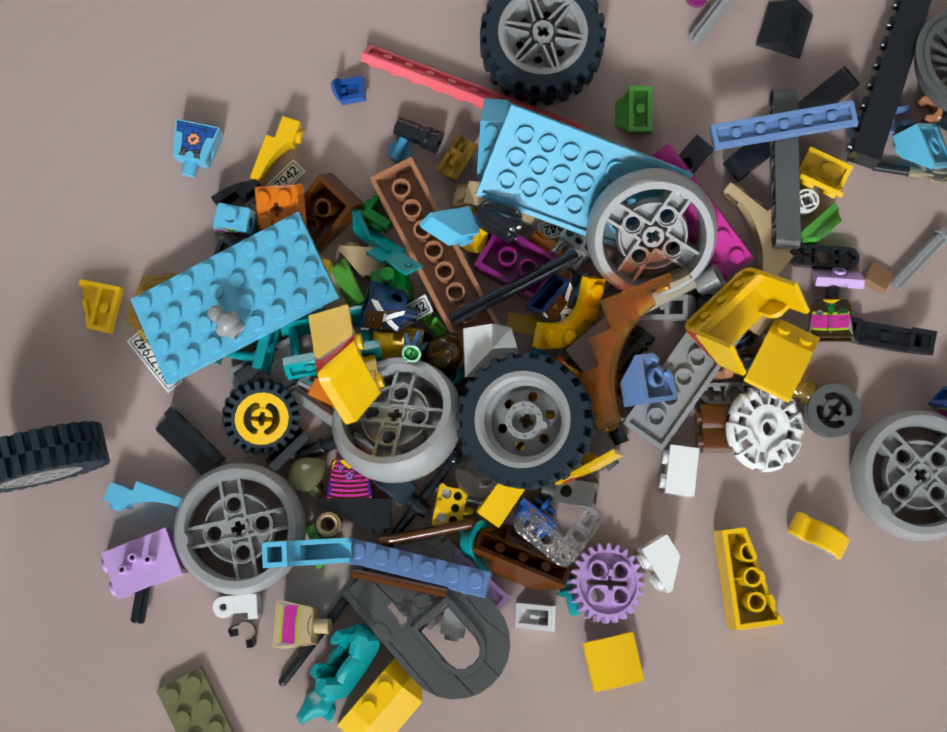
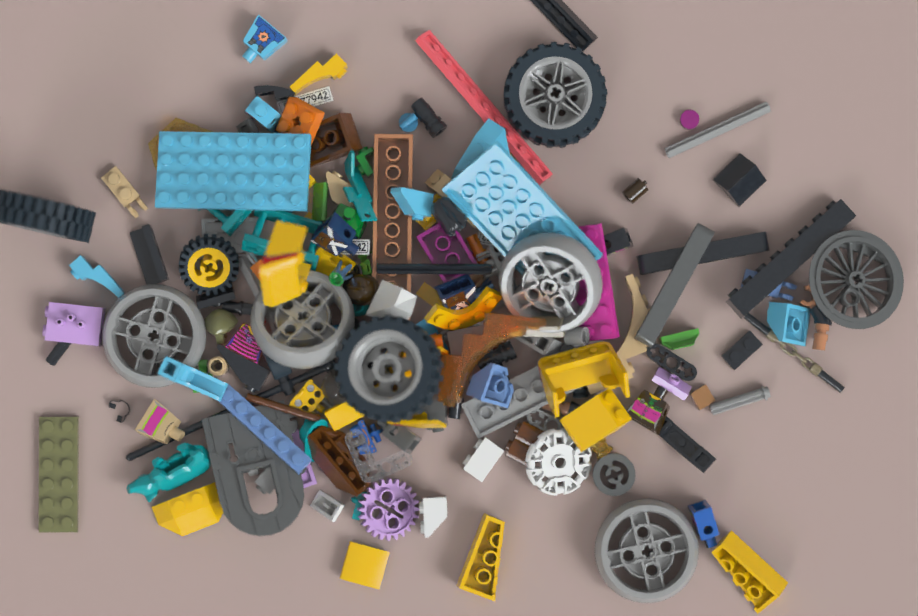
camera: 25 degrees right, 5 degrees up
(101, 305) = (136, 122): yellow wing -> none
(124, 386) = (123, 190): none -> tan hinge
(146, 354) = (150, 178): white sticker -> none
(227, 324) = (219, 189): light grey animal -> none
(231, 604) = (120, 385): white leg -> none
(349, 90) = (396, 57): blue plate -> none
(400, 582) = (245, 432): reddish brown piece -> none
(457, 157) = (446, 150): pearl gold hips -> none
(634, 110) = (595, 183): bright green slope -> none
(682, 96) = (635, 190): none -> dark brown piece
(783, 125) = (687, 255): medium blue plate -> none
(805, 207) = (679, 316): white wheel -> none
(819, 535) = (554, 555): yellow animal -> none
(824, 171) = (703, 302): yellow bracket -> none
(890, 205) = (741, 350): none -> black plate

